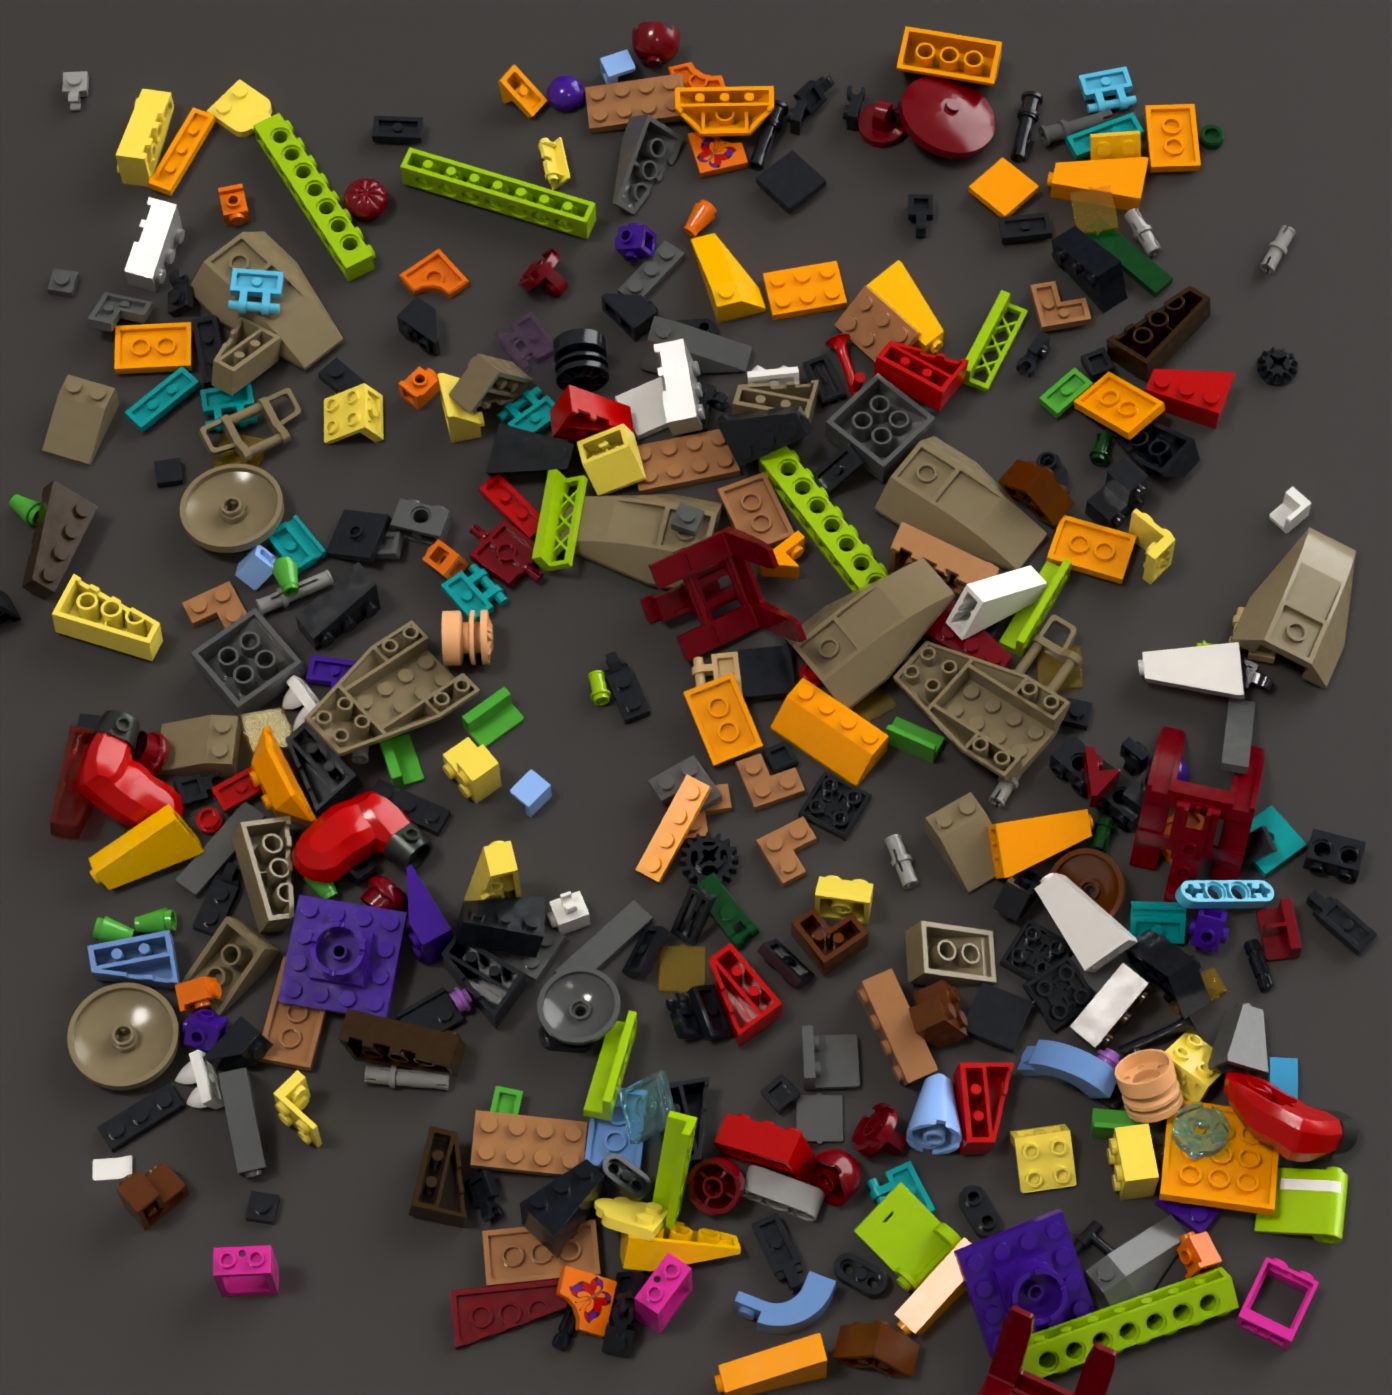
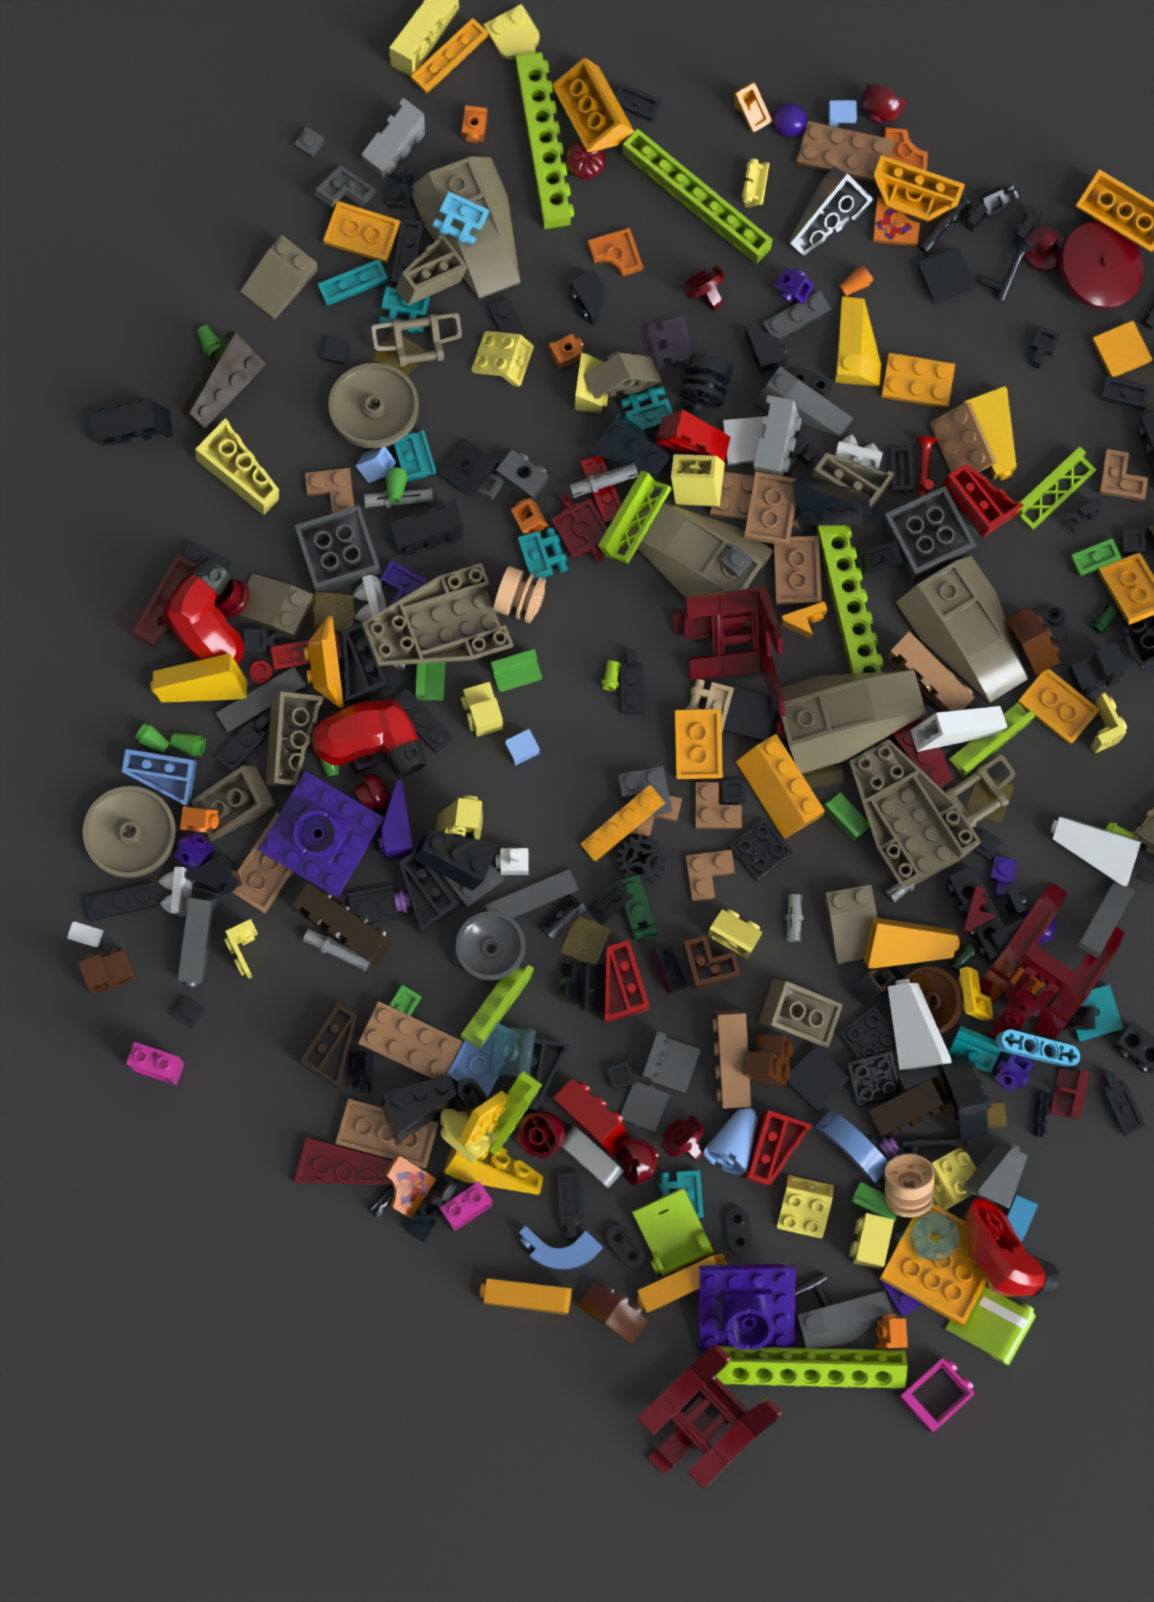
camera: 15 degrees right, 15 degrees up
(353, 145) = (592, 106): none -> light orange slope
(511, 494) = (603, 480): none -> light grey pin
(645, 1185) = (483, 1119): none -> yellow plate
(703, 460) = (771, 509): none -> medium nougat plate
(858, 125) = (1003, 289): none -> black piece
(1107, 735) = (1002, 872): none -> dark purple plate
(1133, 869) = (974, 1002): none -> yellow plate

